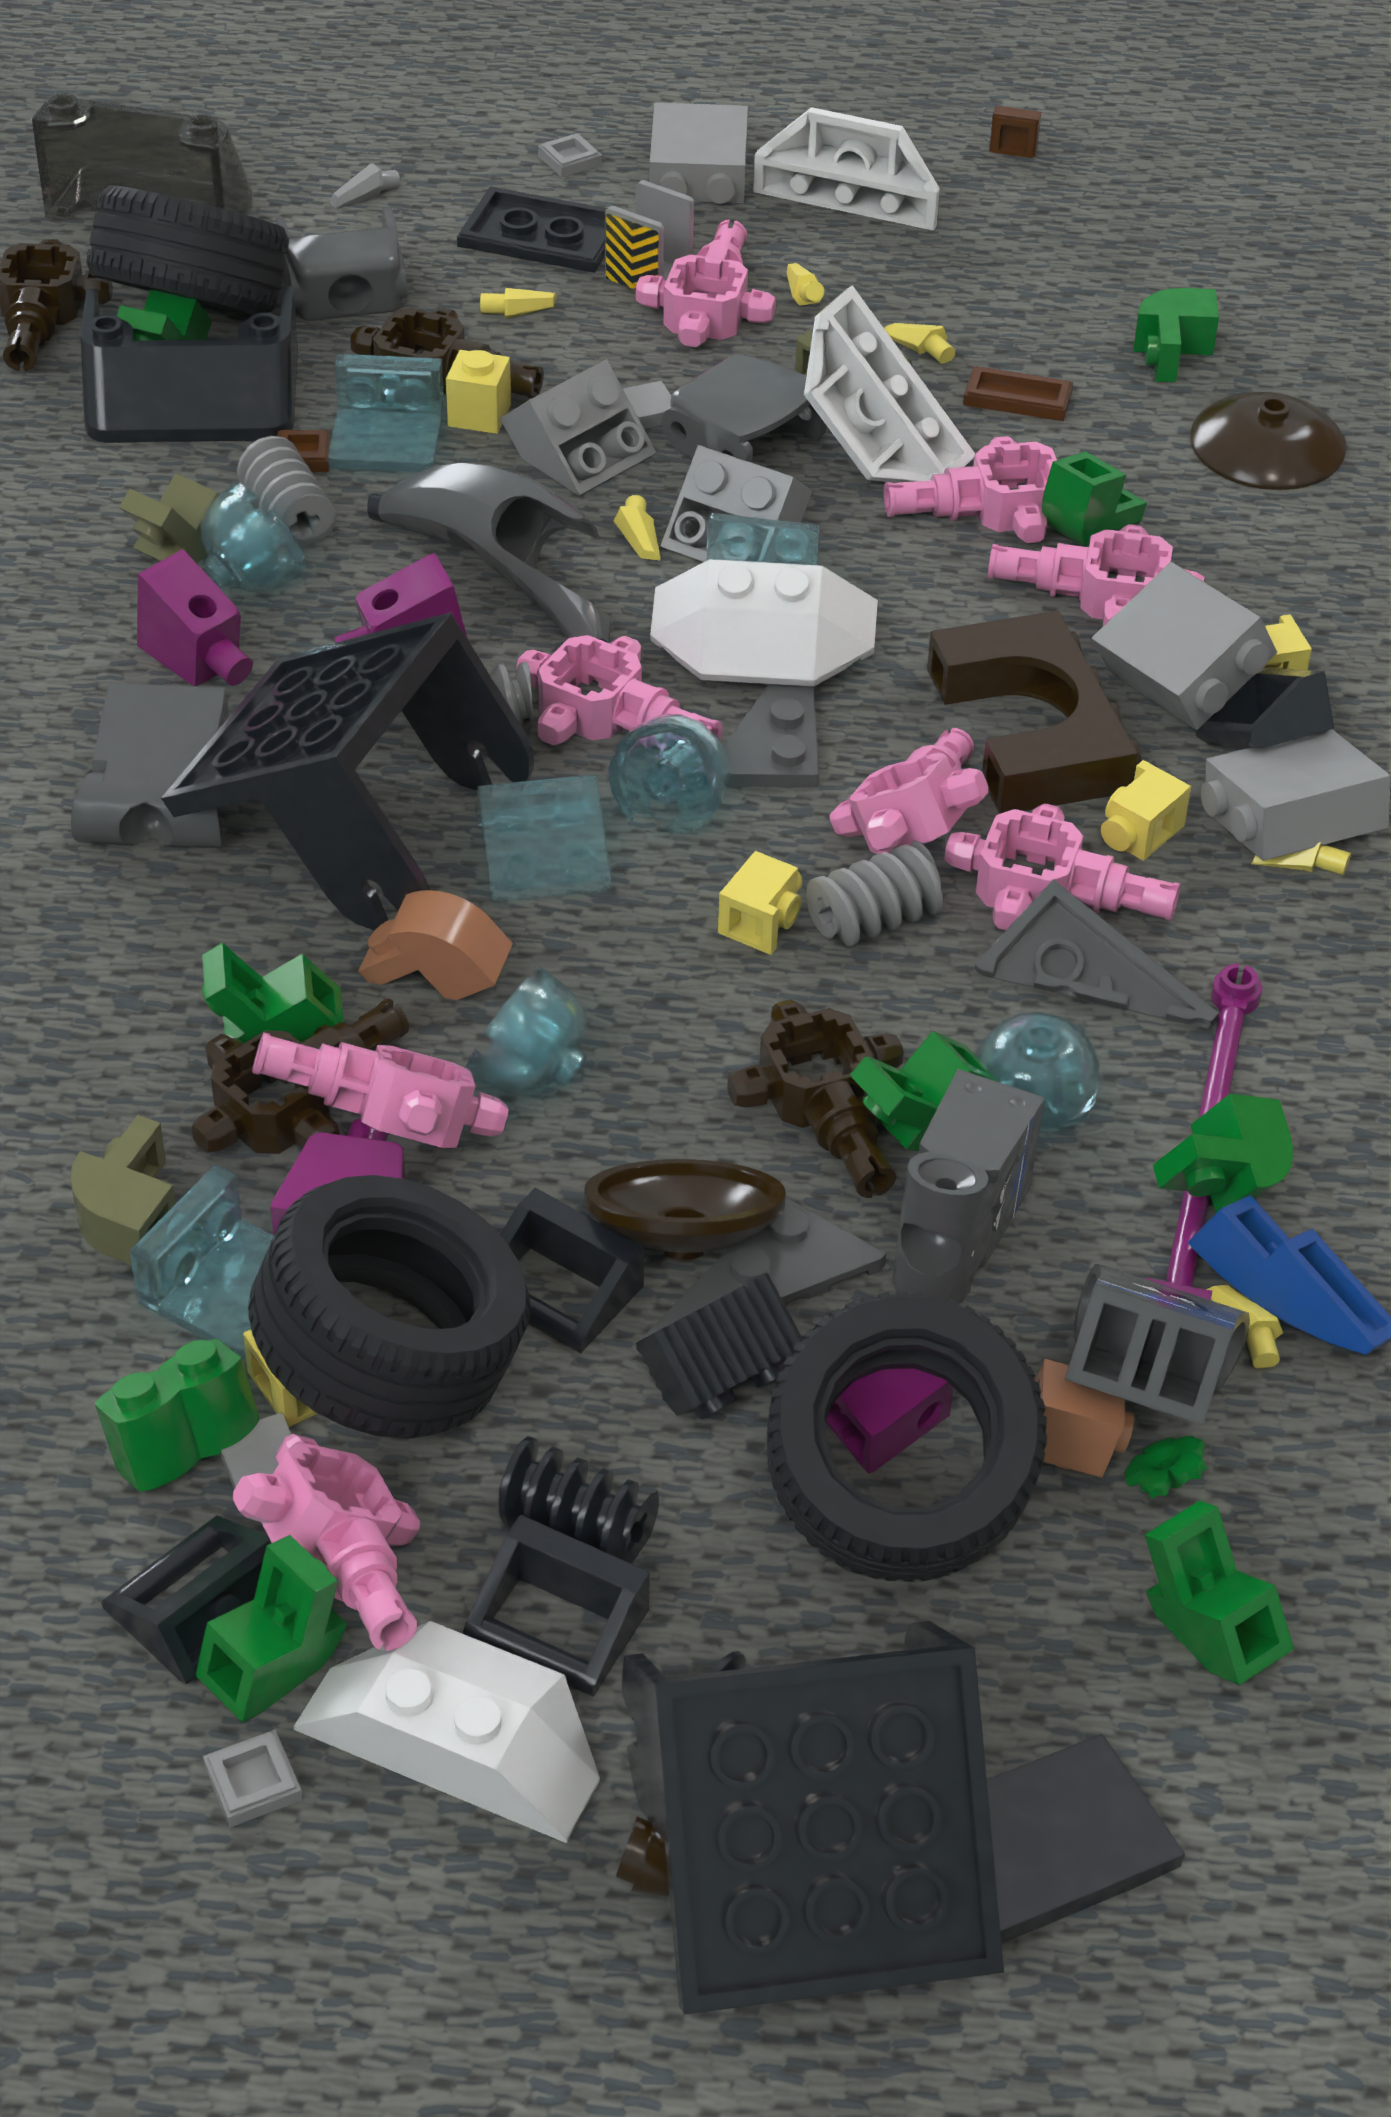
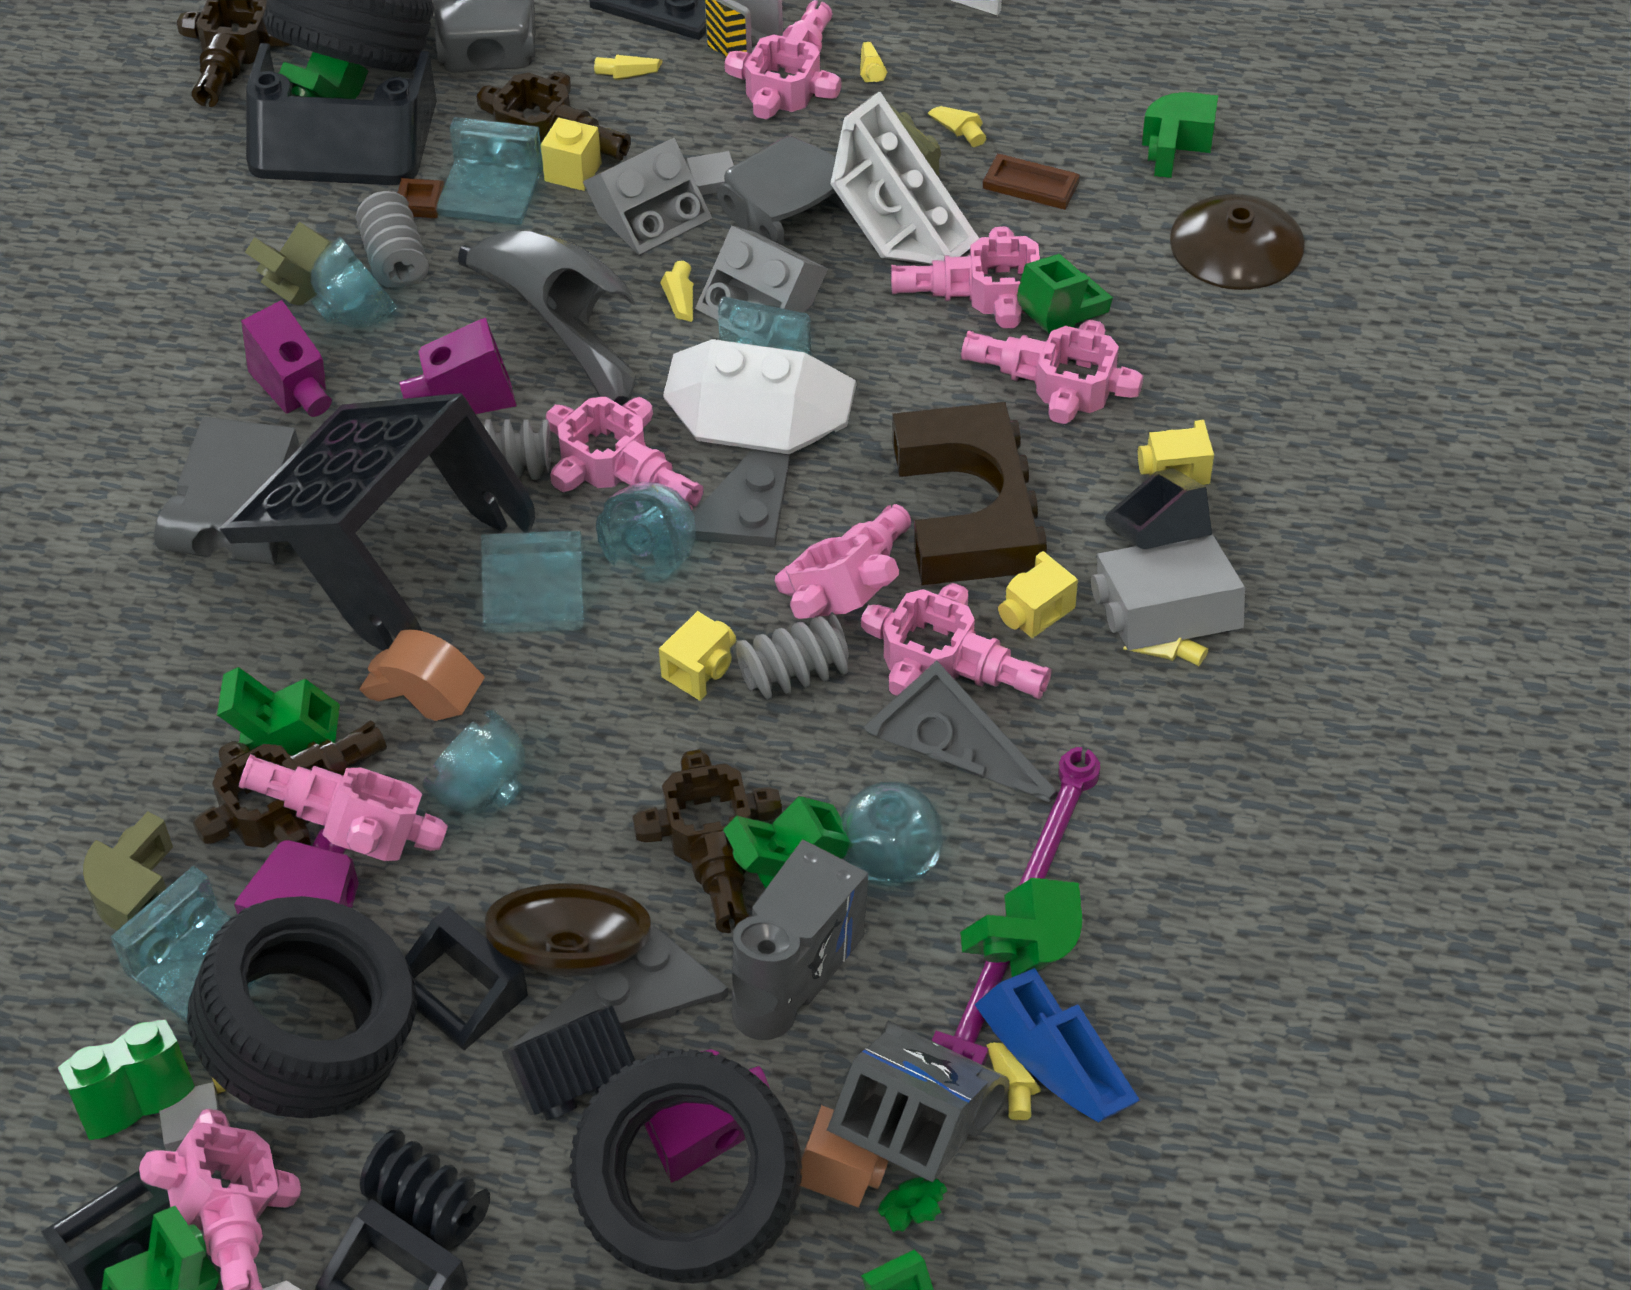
camera: 10 degrees right, 5 degrees up
(1184, 645) = (1104, 443): light grey brick -> none

